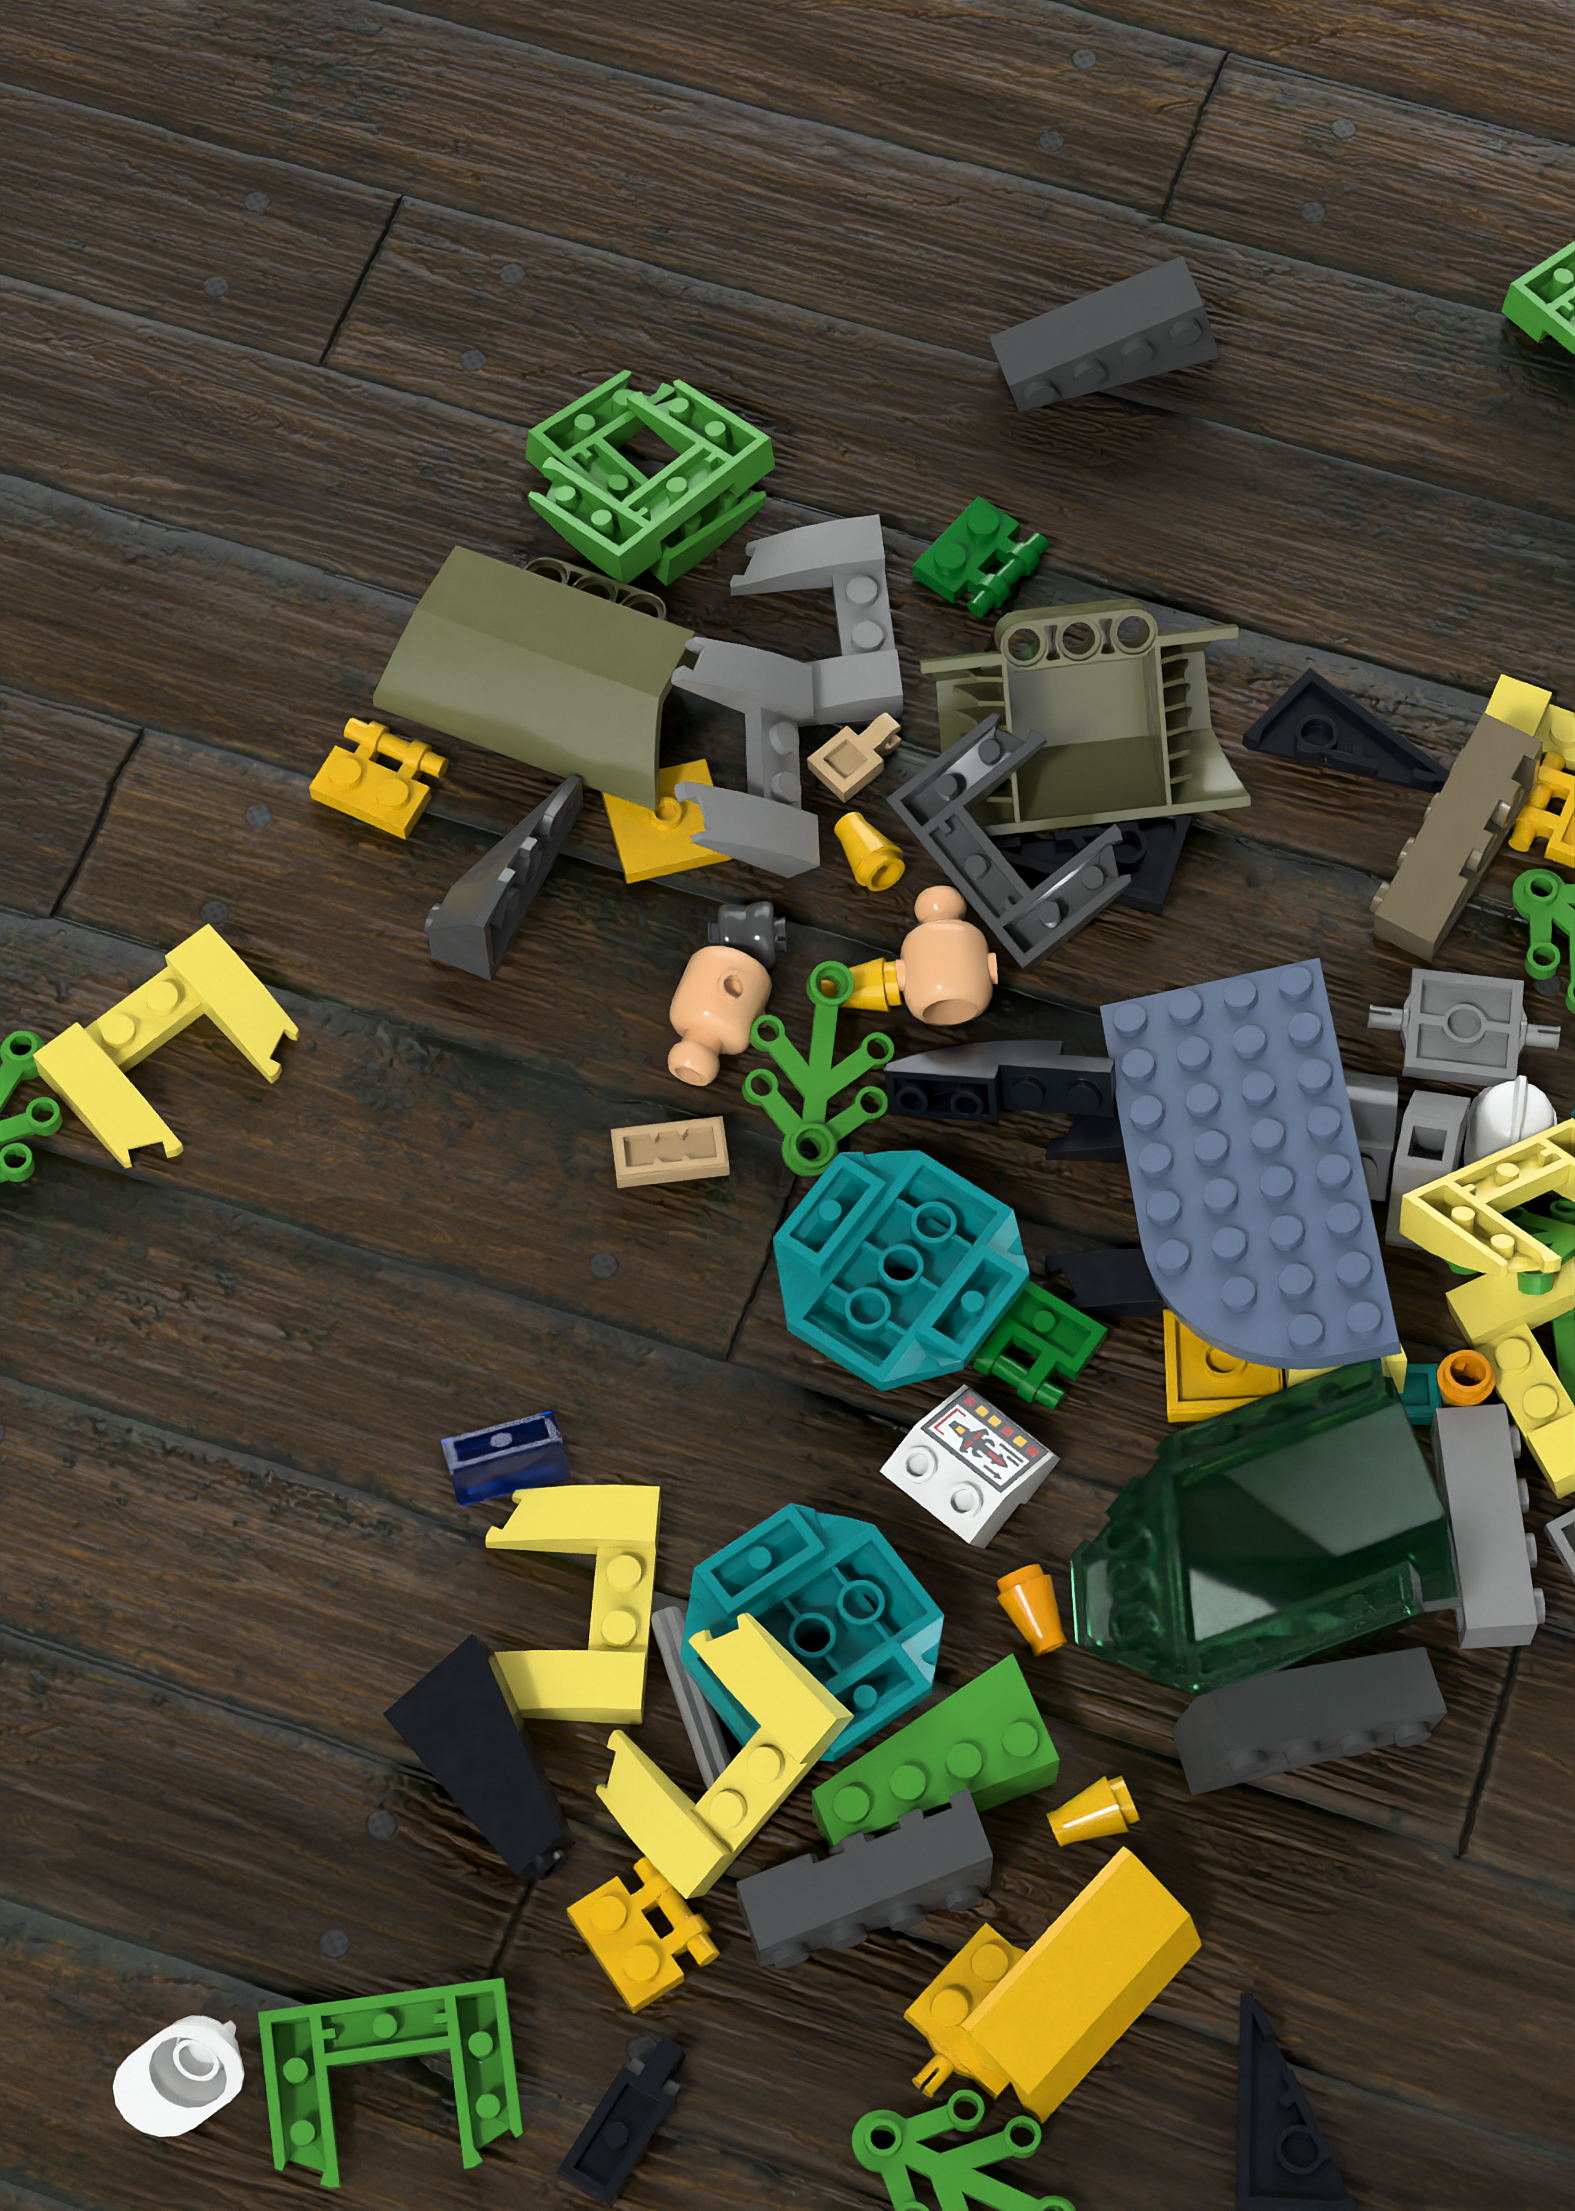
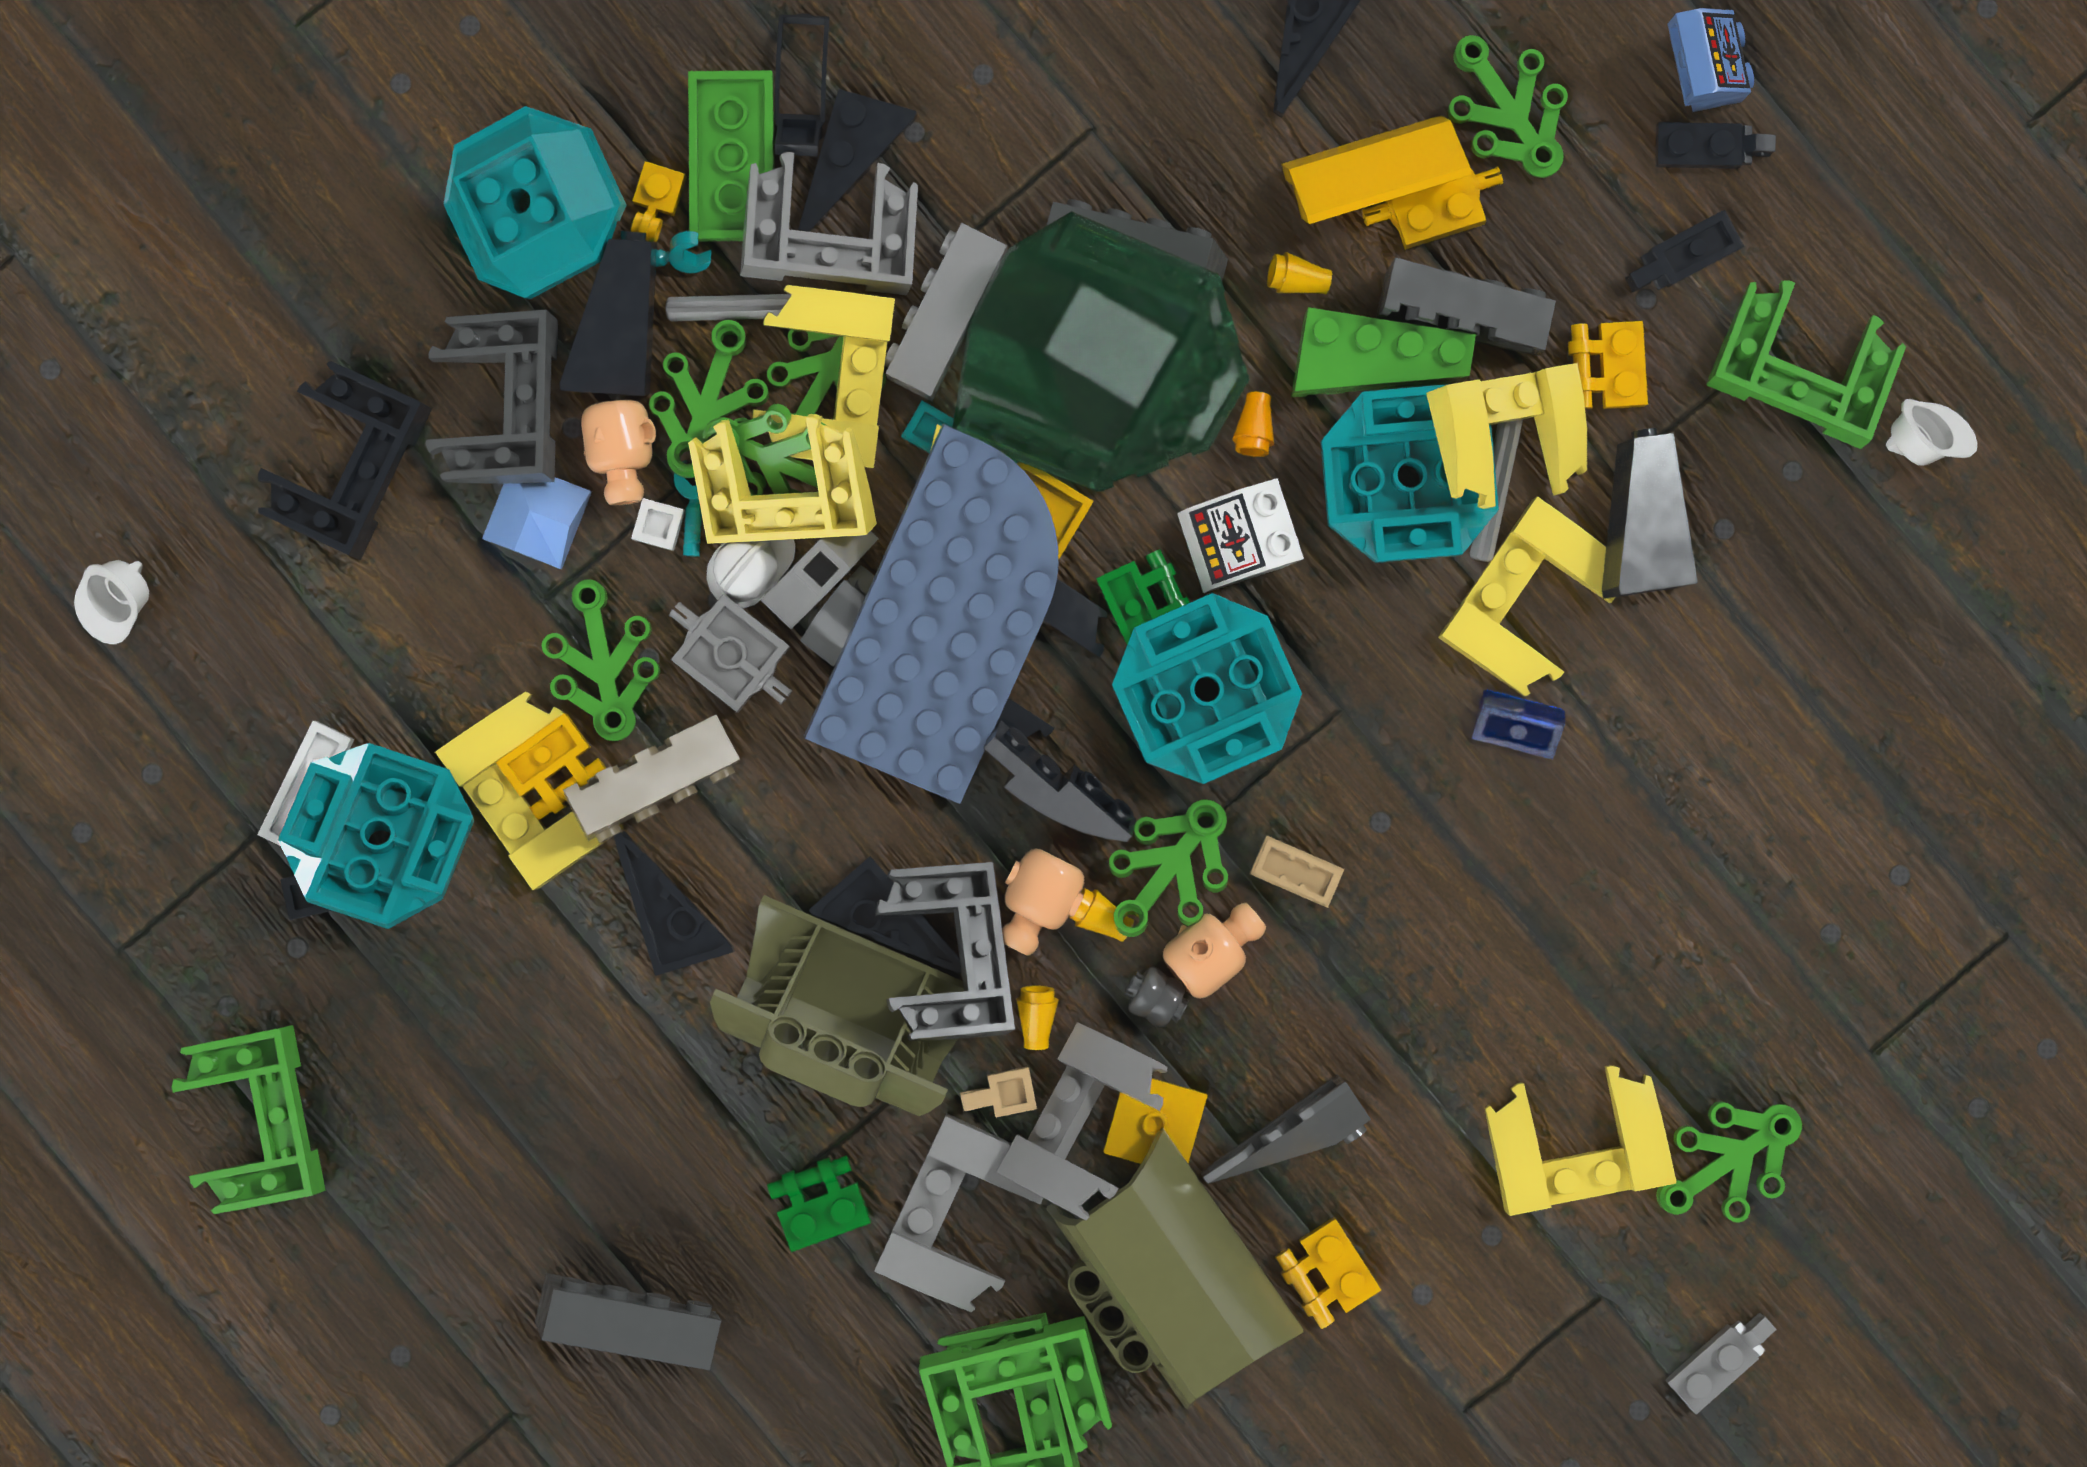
camera: 155 degrees left, 25 degrees up
(1465, 1379) = (891, 394): light orange cone -> none

